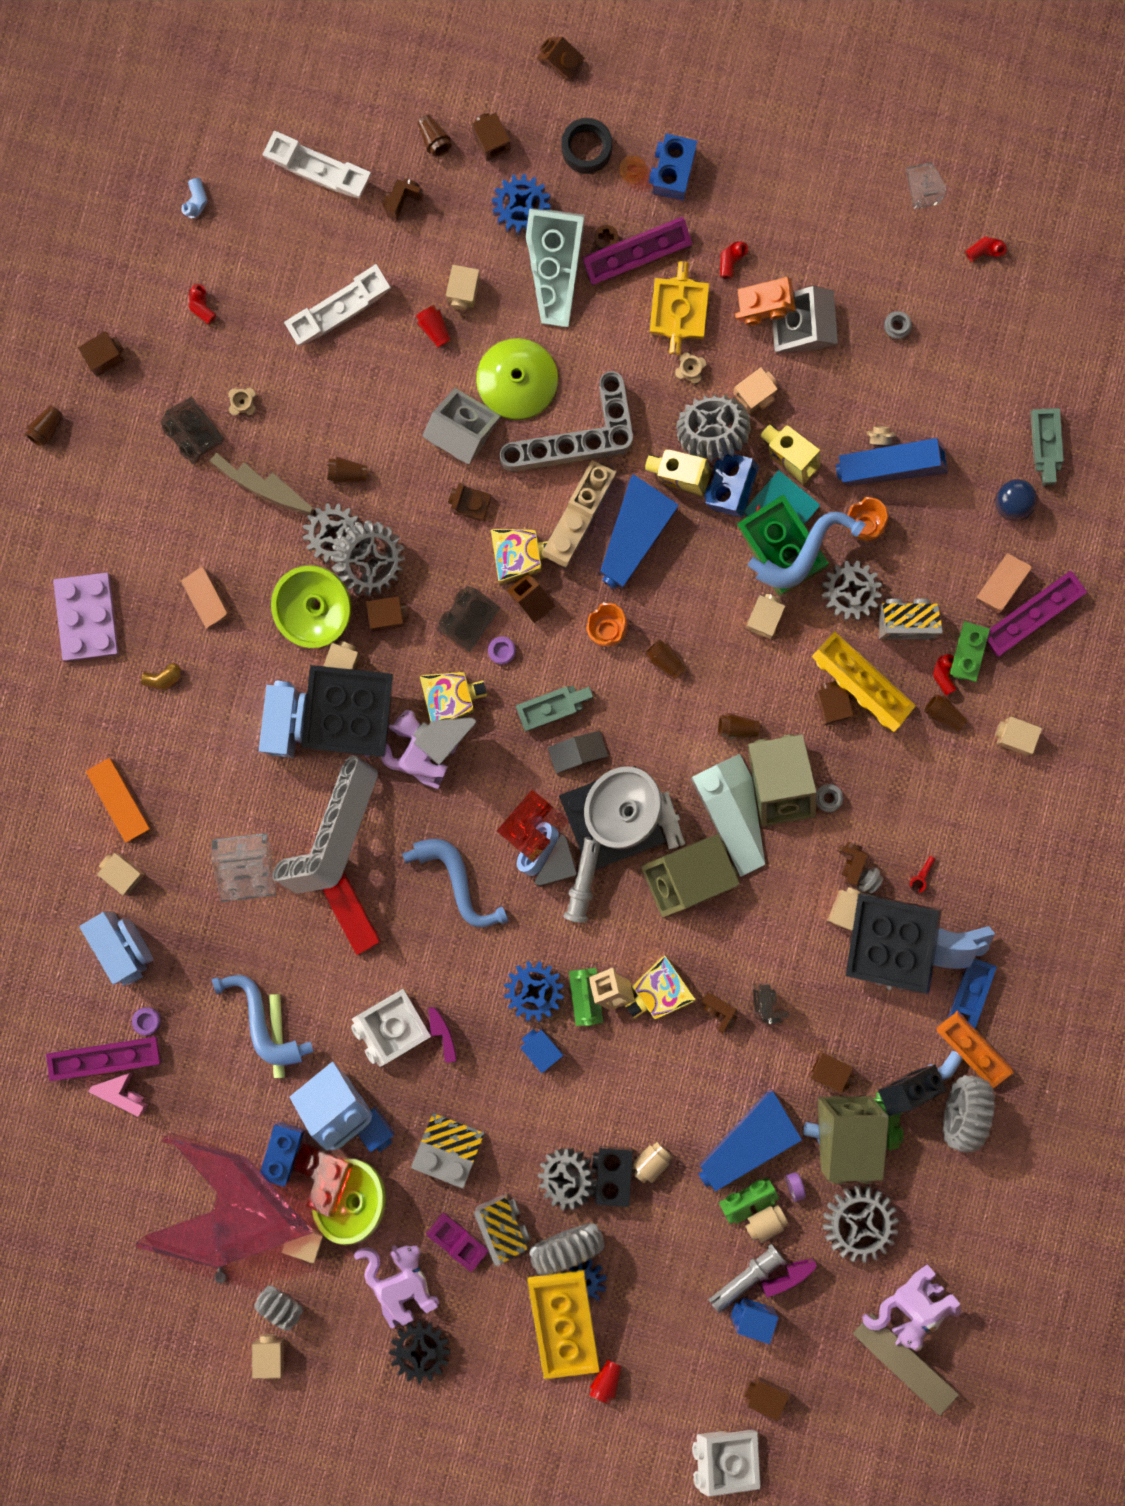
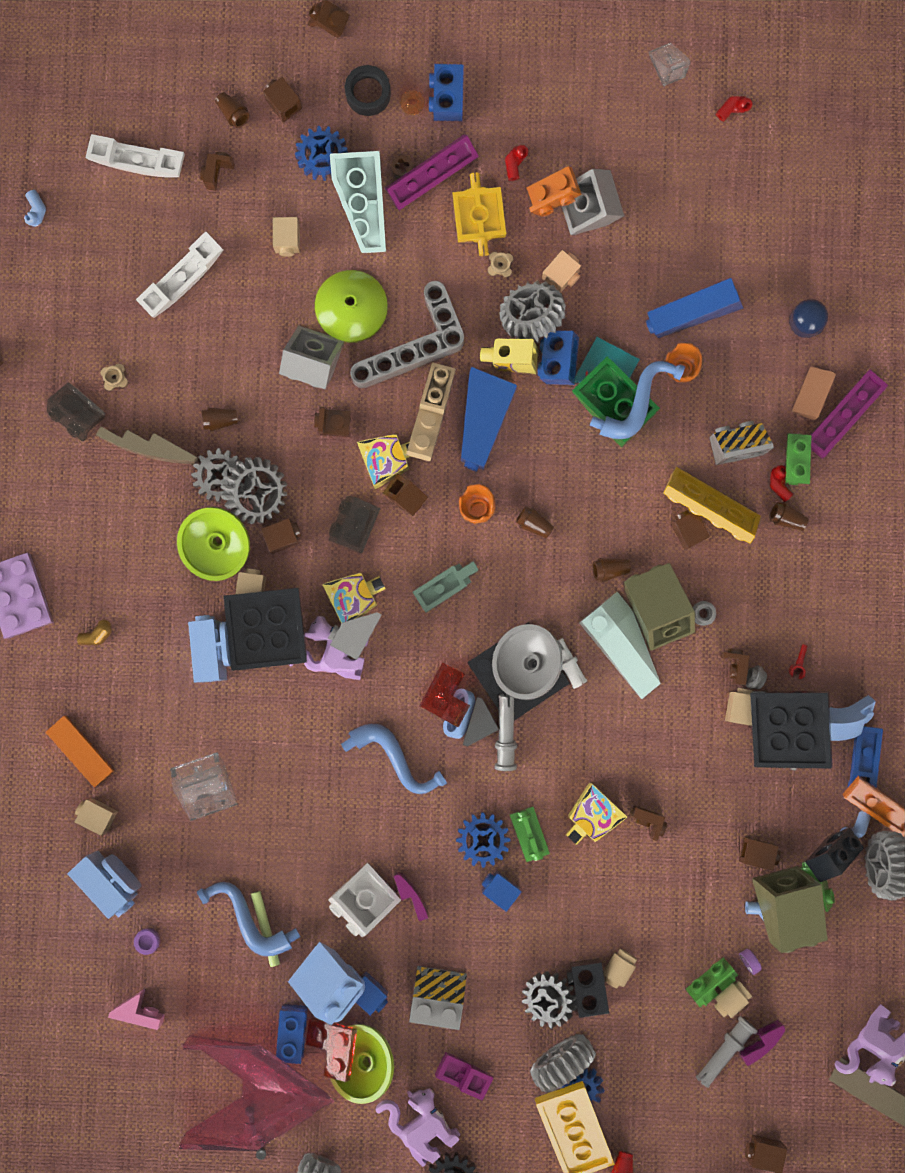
camera: 20 degrees left, 0 degrees up
(103, 1058) = (115, 983): magenta plate -> none
(197, 304) = (57, 301): red arm -> none
(205, 597) = (119, 556): nougat slope -> none
(305, 1247) = (332, 1113): tan brick -> none
(336, 833) = (279, 739): light grey beam -> none
(351, 915) = (297, 795): red fence -> none
(433, 325) = (268, 275): red cone -> none
(501, 650) = (389, 546): medium lavender tile -> none
(502, 1229) = (500, 1057): slope -> none
(577, 751) = (475, 620): dark grey slope -> none
(611, 989) = (551, 824): tan brick -> none
(690, 875) = (598, 708): olive slope -> none
(751, 1142) = (702, 932): blue slope -> none
(754, 1320) = (742, 1089): blue brick -> none
(764, 999) = (689, 807): clear smoke bracket -> none
(765, 616) = (613, 466): tan brick -> none
(792, 452) = (606, 318): light yellow torso -> none
(849, 578) = (687, 437): light grey gear -> none
(854, 1234) = (811, 992): light grey gear -> none
(881, 435) = (679, 287): tan plate -> none
(900, 317) = (672, 182): light grey plate -> none
(1018, 735) = (856, 523): tan brick -> none
(1047, 443) = (824, 264): sand green hinge -> none

